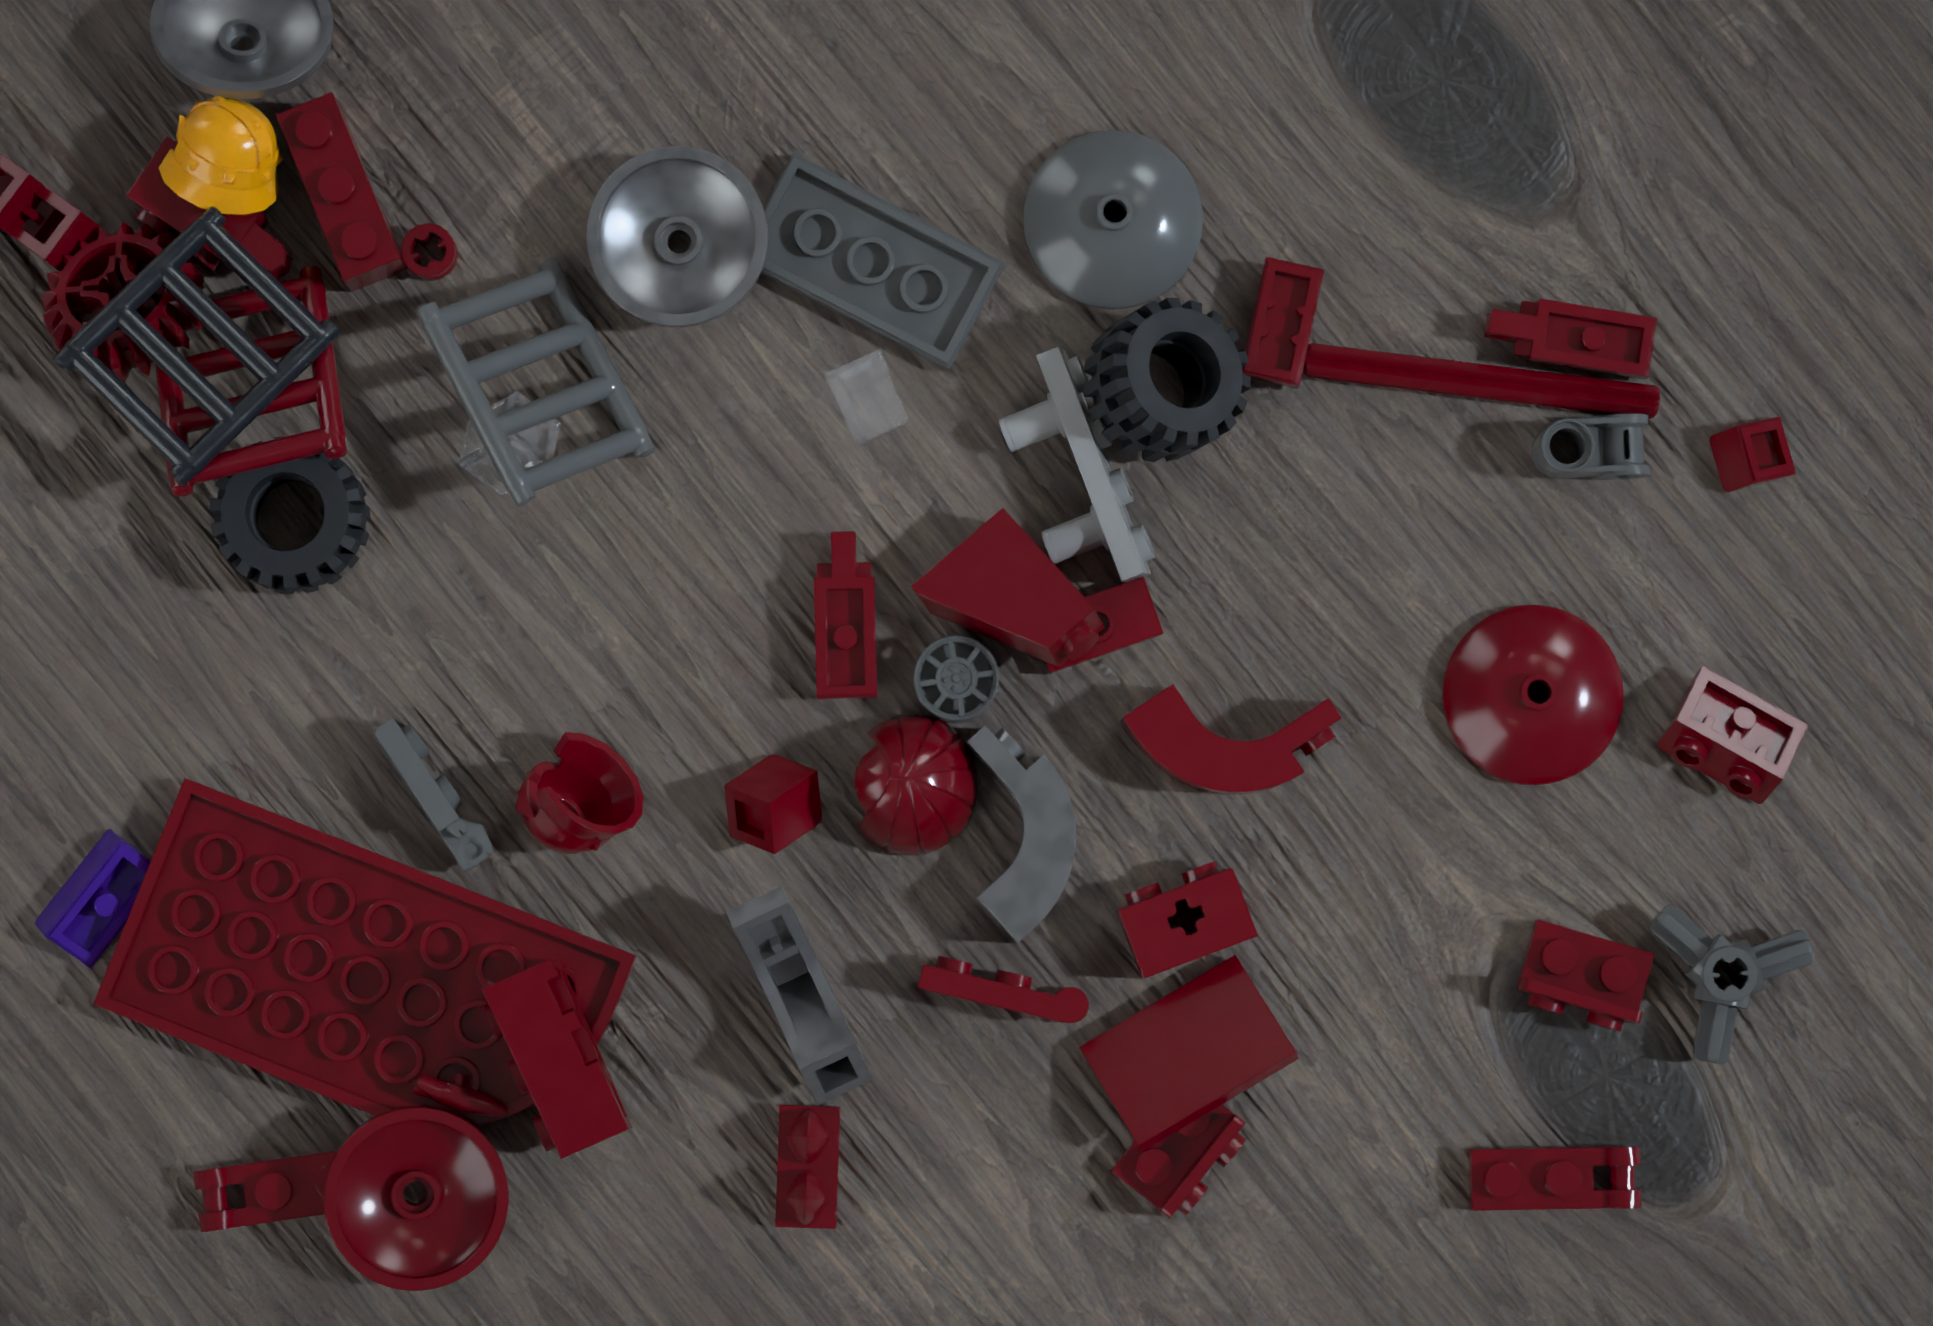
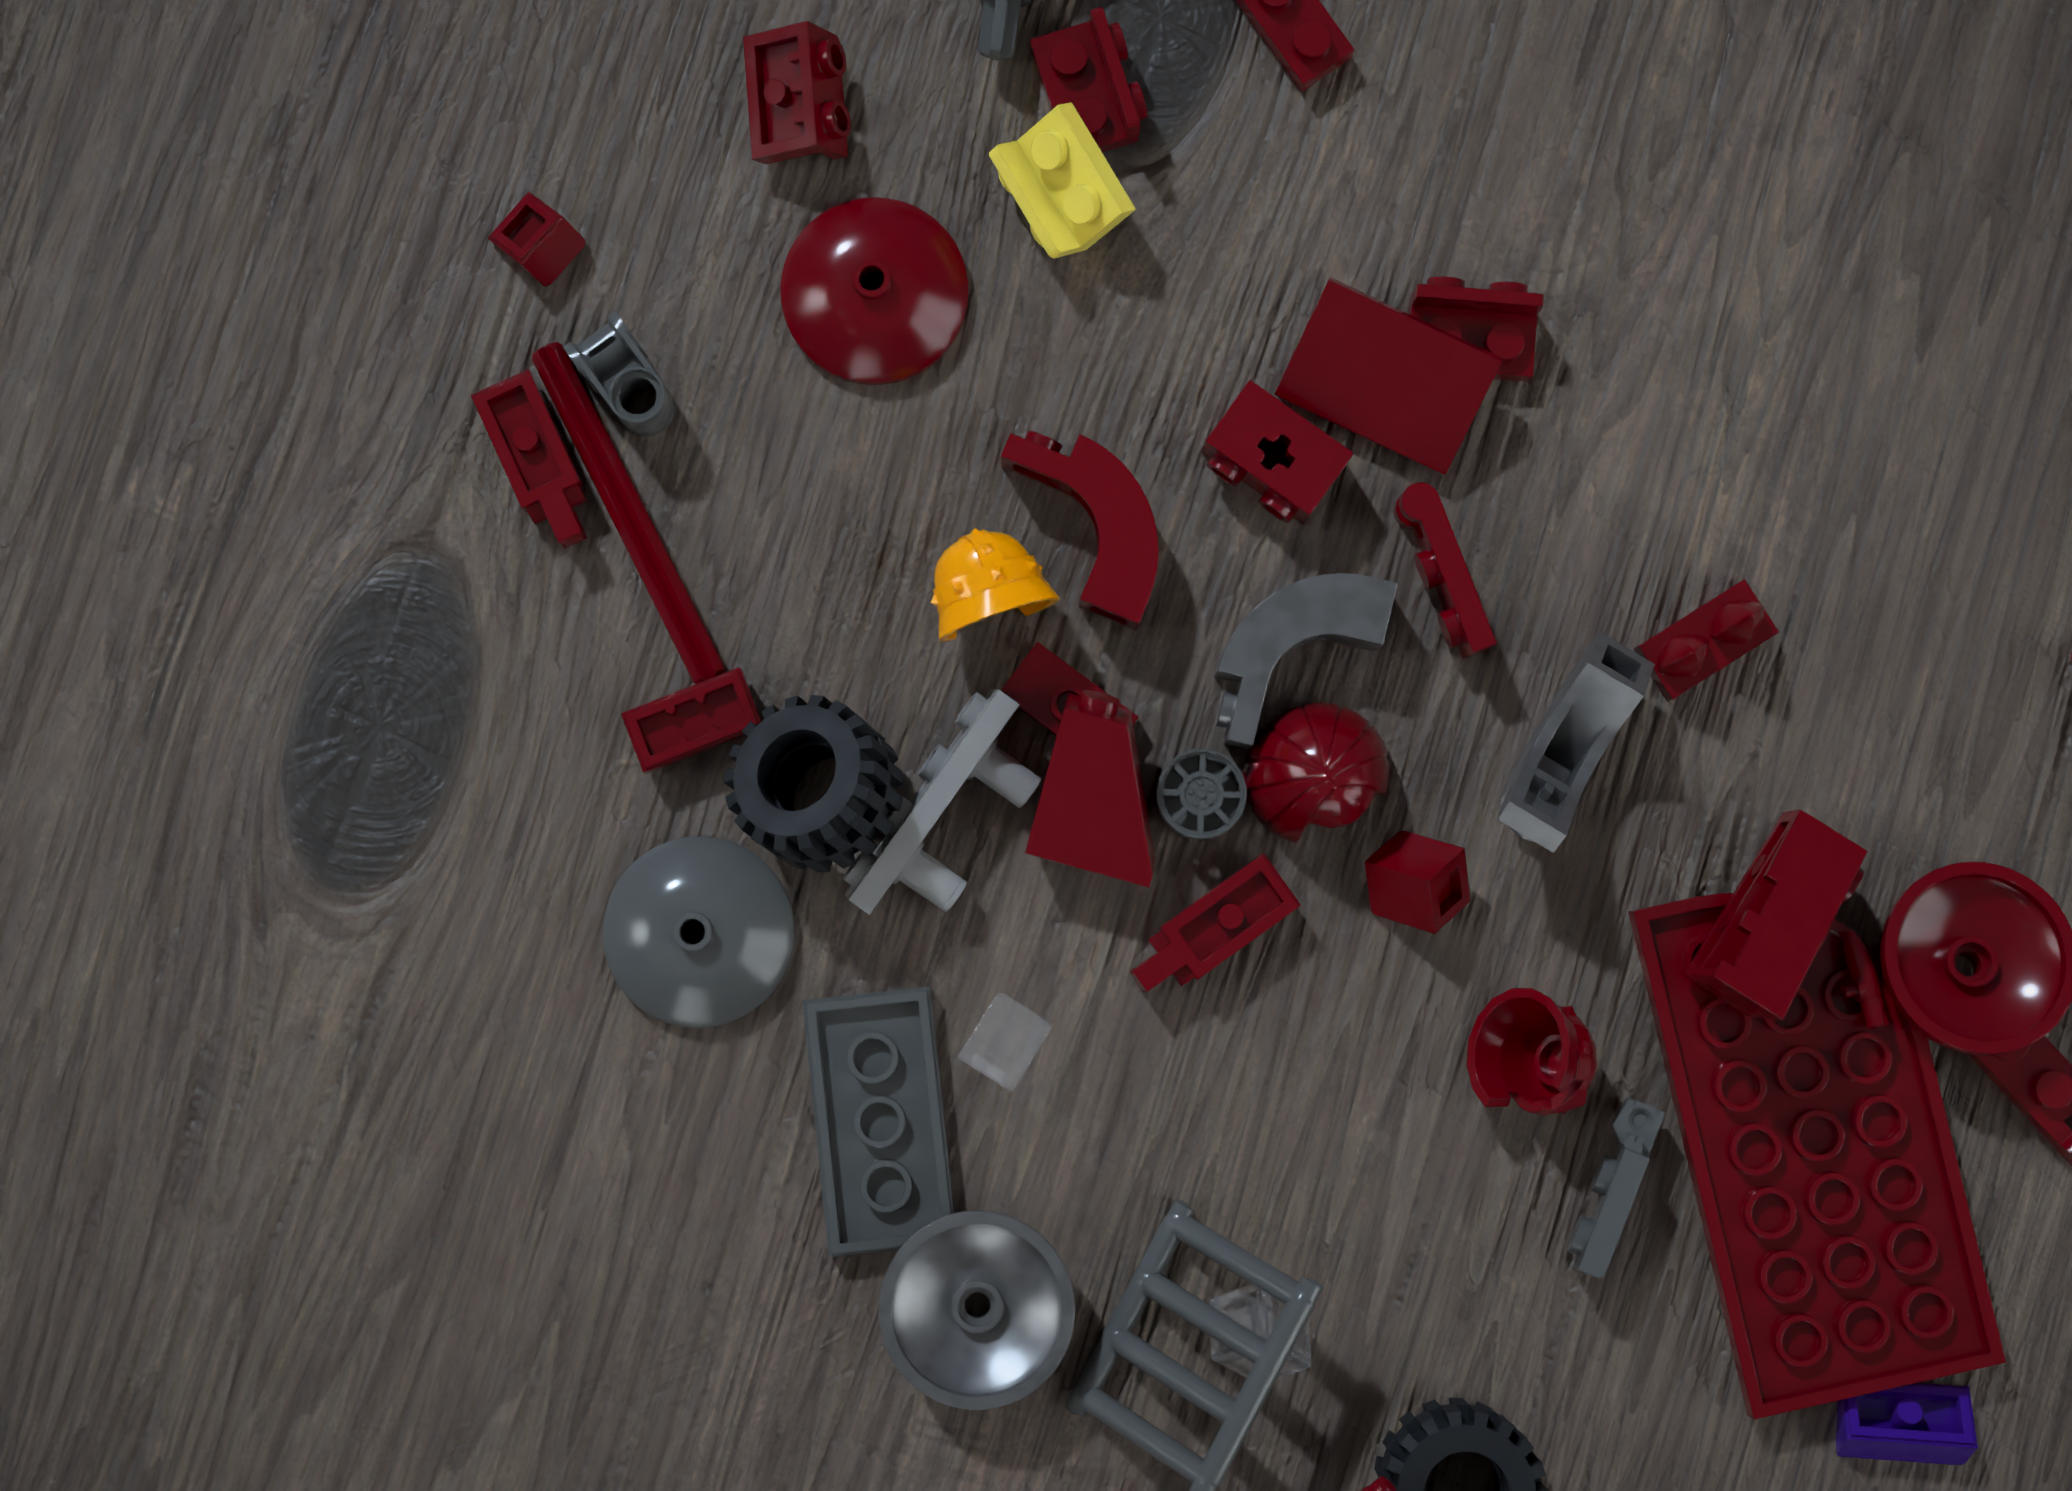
camera: 120 degrees left, 0 degrees up
(1237, 620) = (986, 577): none -> light orange helmet
(1518, 897) = (1062, 183): none -> light yellow bracket

